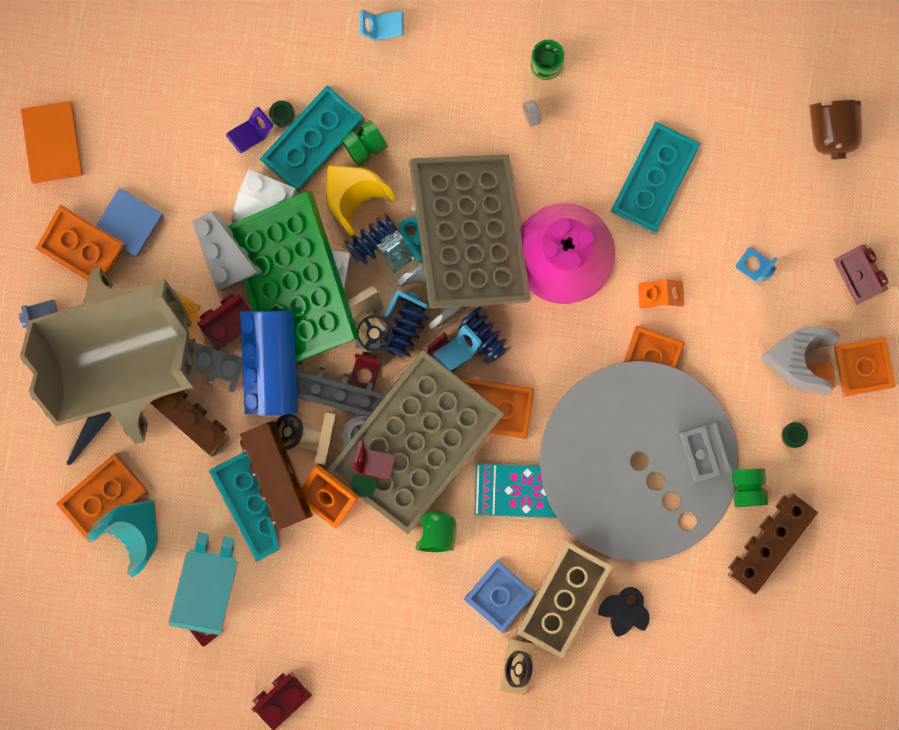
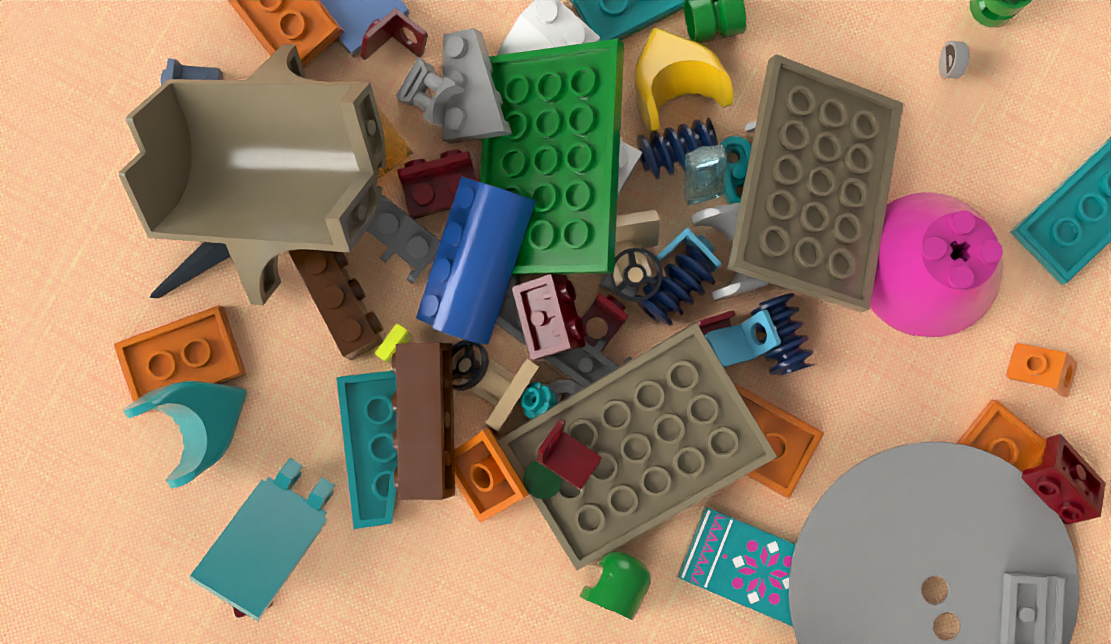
camera: 15 degrees right, 0 degrees up
(158, 228) = (392, 26): none -> dark red bracket
(186, 263) = (415, 85): none -> light grey piece
(234, 441) = (388, 347): none -> neon yellow tile
(330, 379) = (549, 315): none -> bracket
(342, 435) = (537, 399): none -> teal plate
(697, 361) = (1066, 482): none -> dark red bracket

